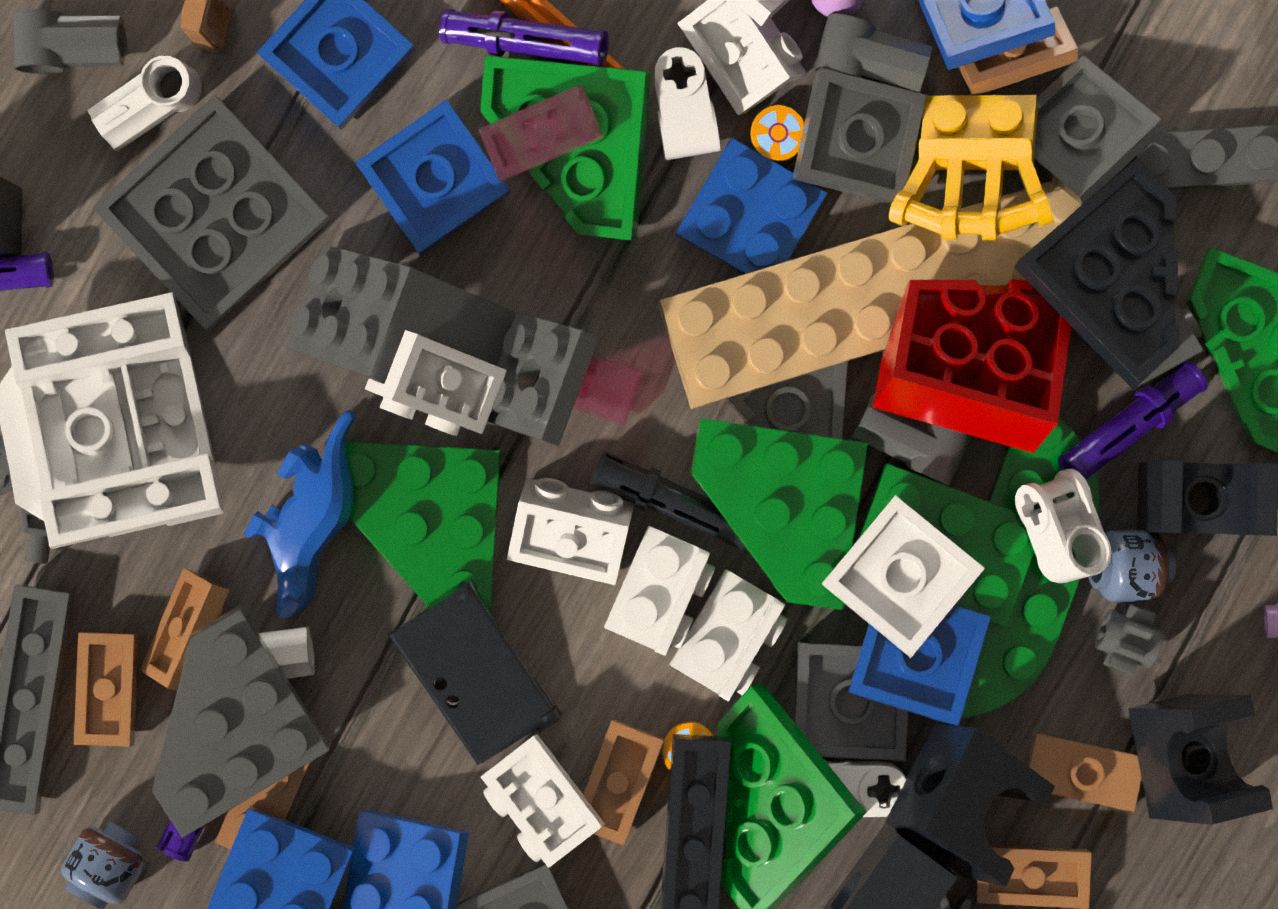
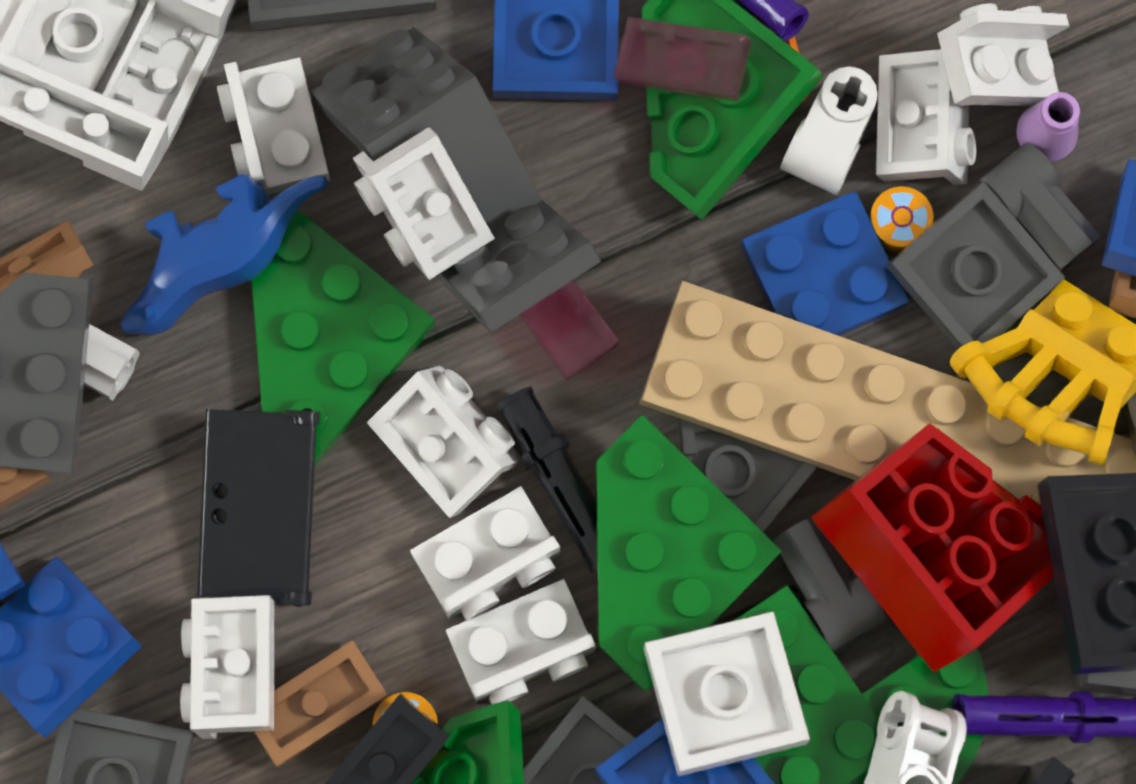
camera: 30 degrees right, 10 degrees down
(279, 391) = (274, 123): none -> white bracket

